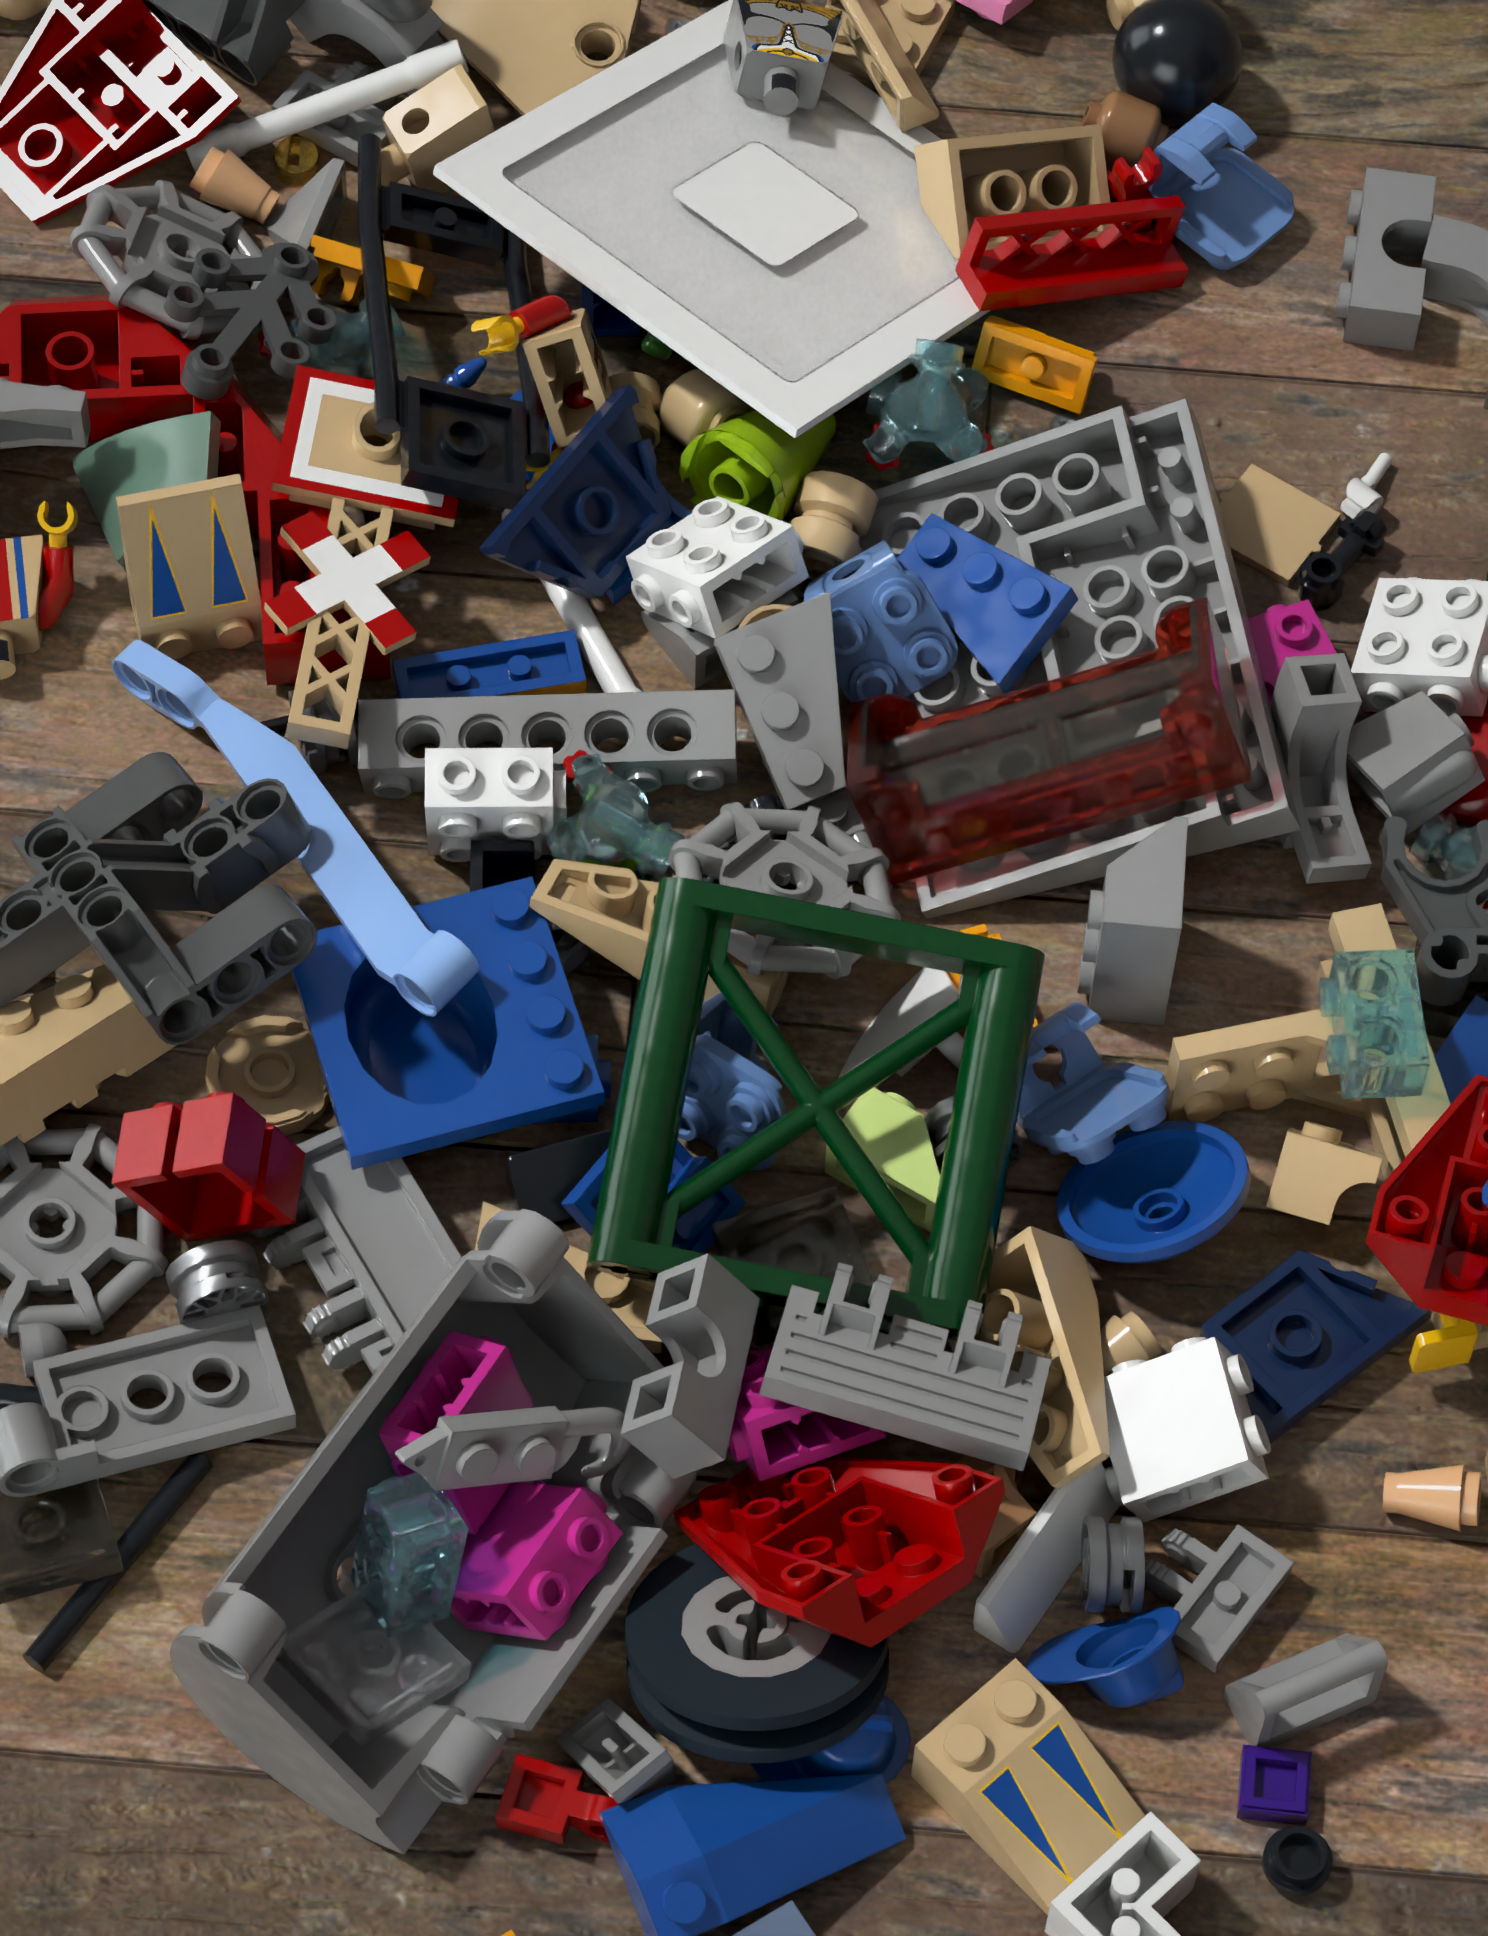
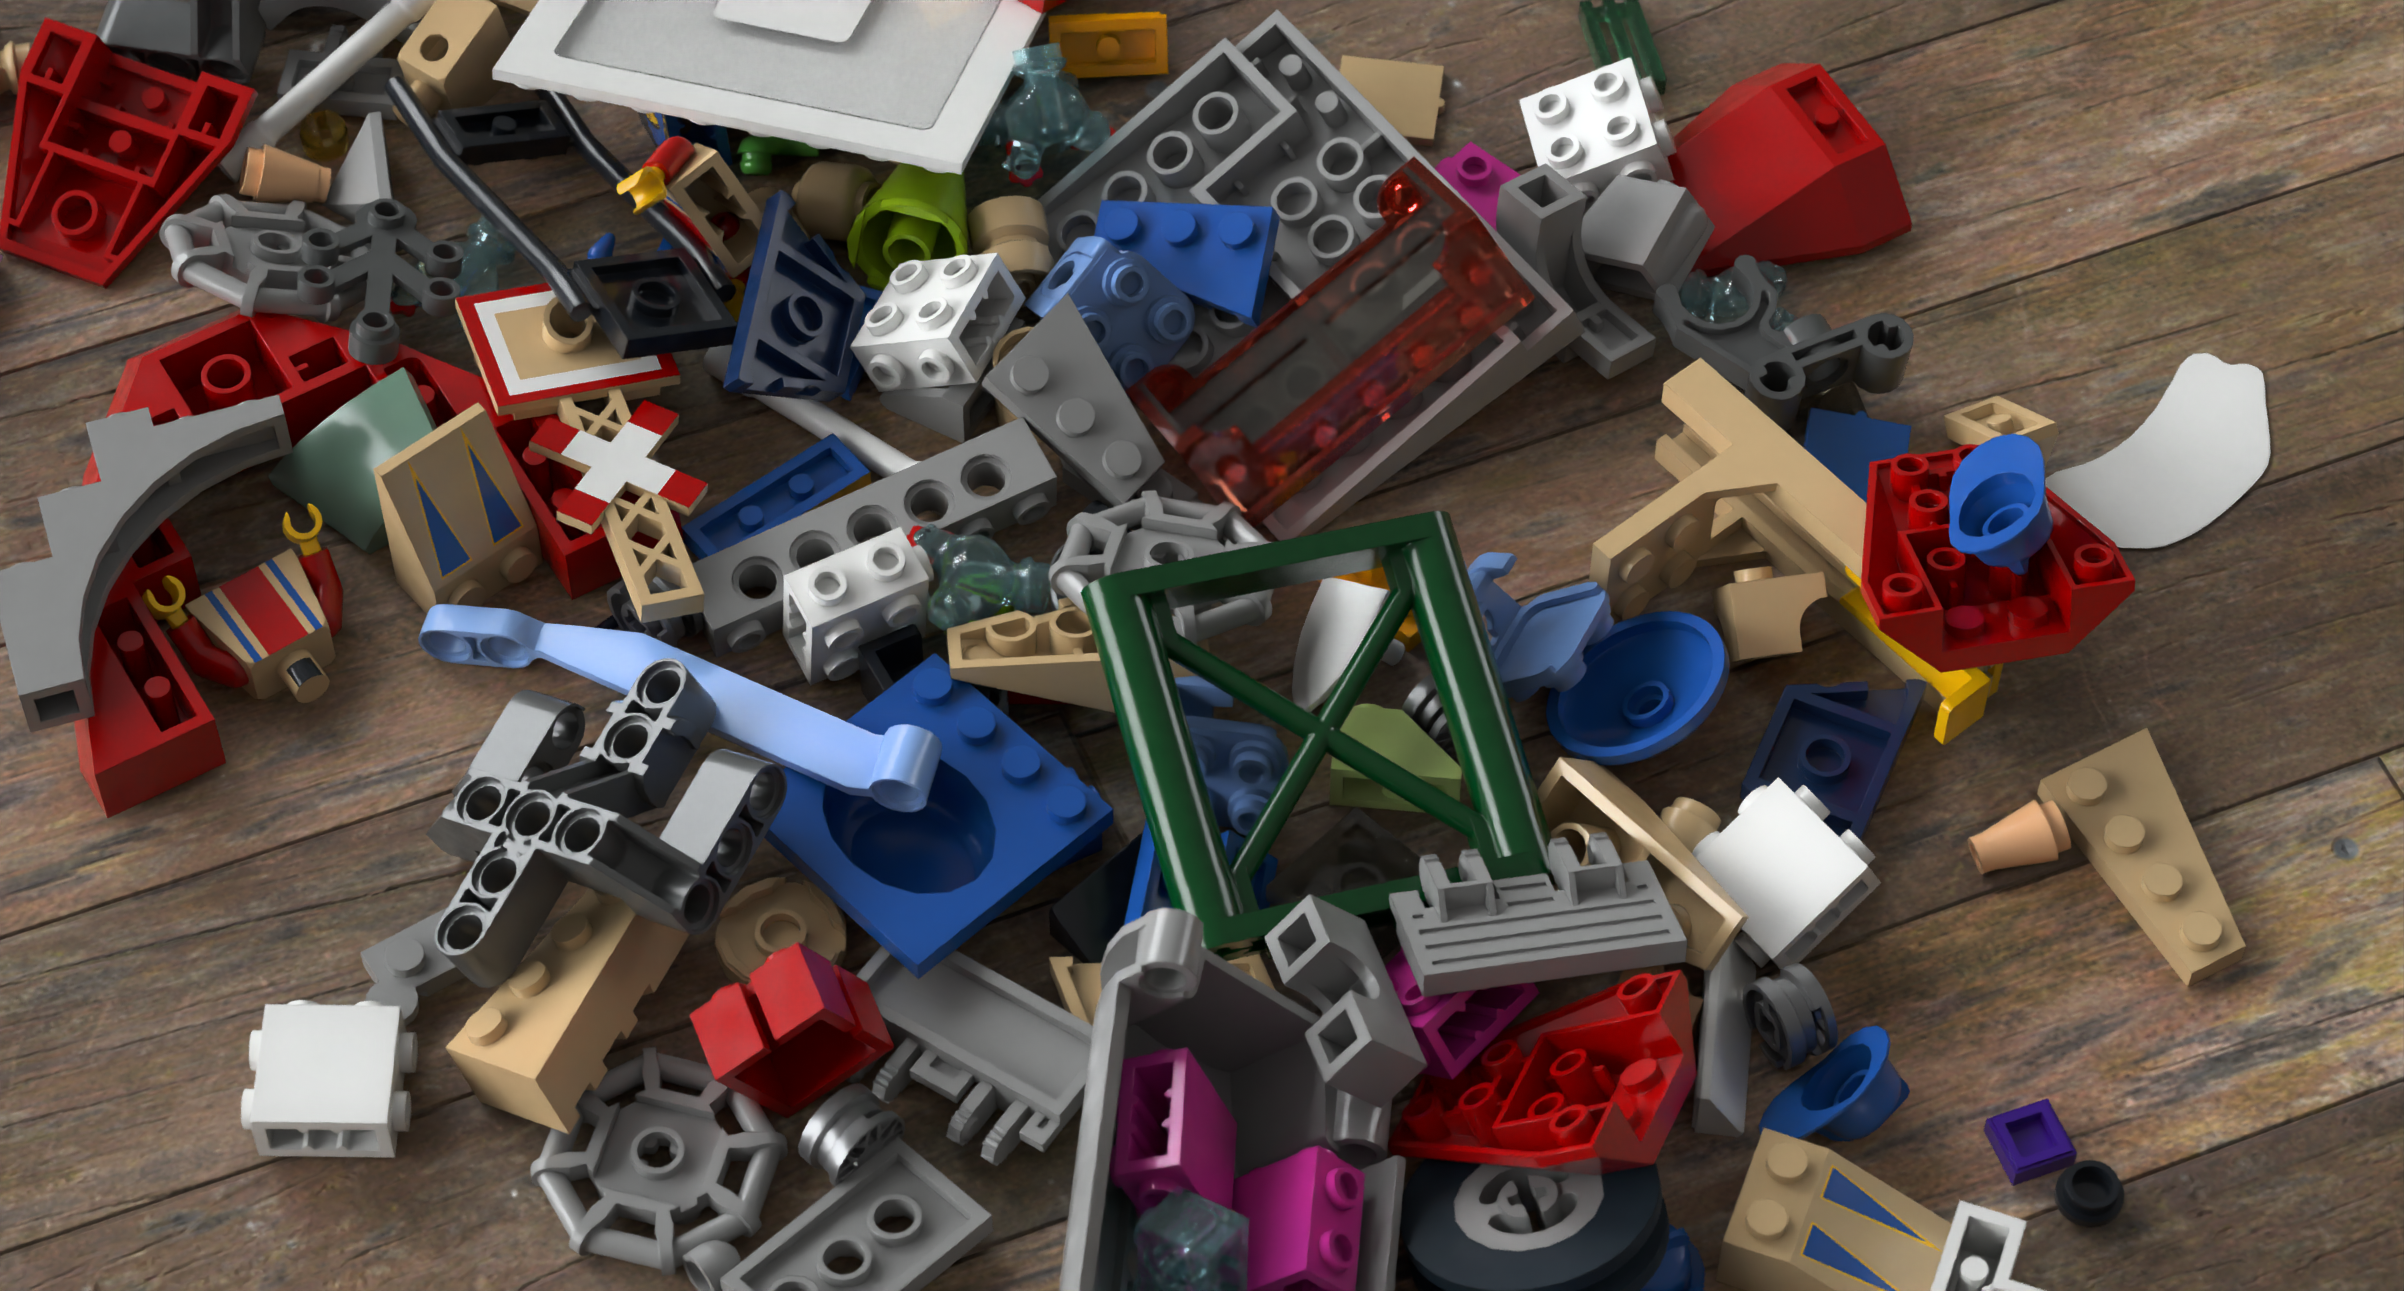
camera: 25 degrees left, 5 degrees down
(336, 257) = (442, 197): light orange plate -> none
(511, 1446) = (1242, 1132): light grey plate -> none
(1136, 929) = (1505, 467): light grey slope -> none
(1226, 1594) = (1897, 996): light grey hinge -> none
(1307, 1689) = (2014, 1044): light grey tile -> none
(1322, 572) = (1464, 116): black bar -> none
(1361, 492) = (1455, 46): white hand -> none
(1385, 1024) = (1766, 453): clear light blue brick -> none

